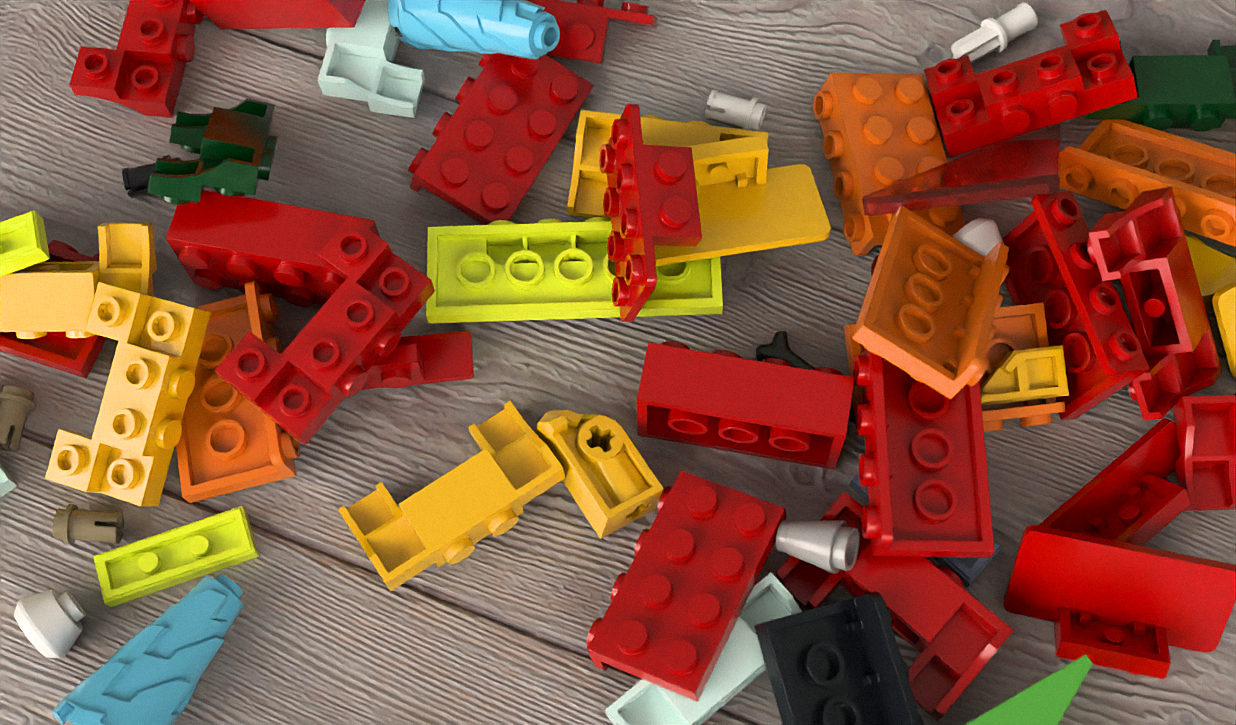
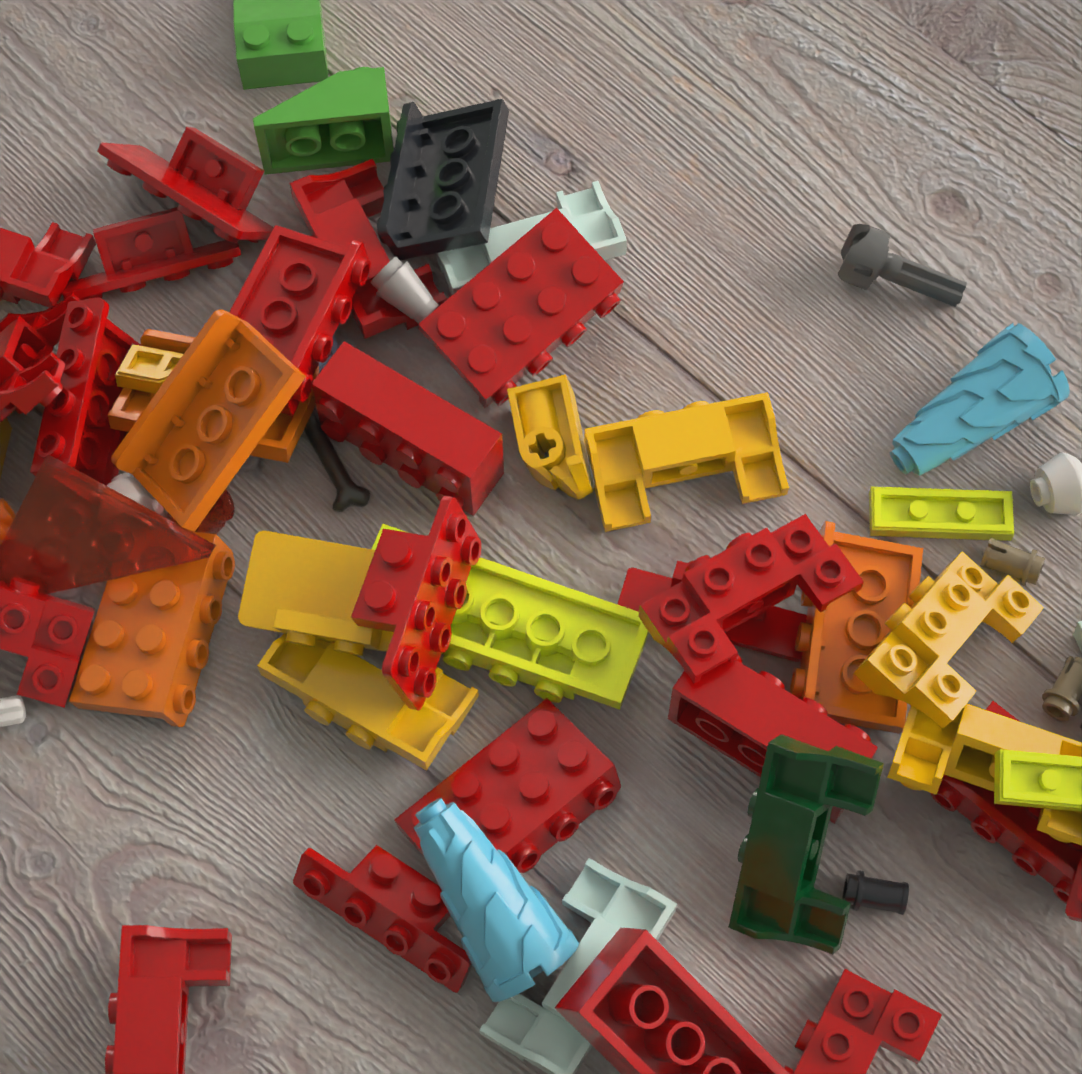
camera: 160 degrees left, 0 degrees up
(736, 110) = (268, 735): white pin -> none

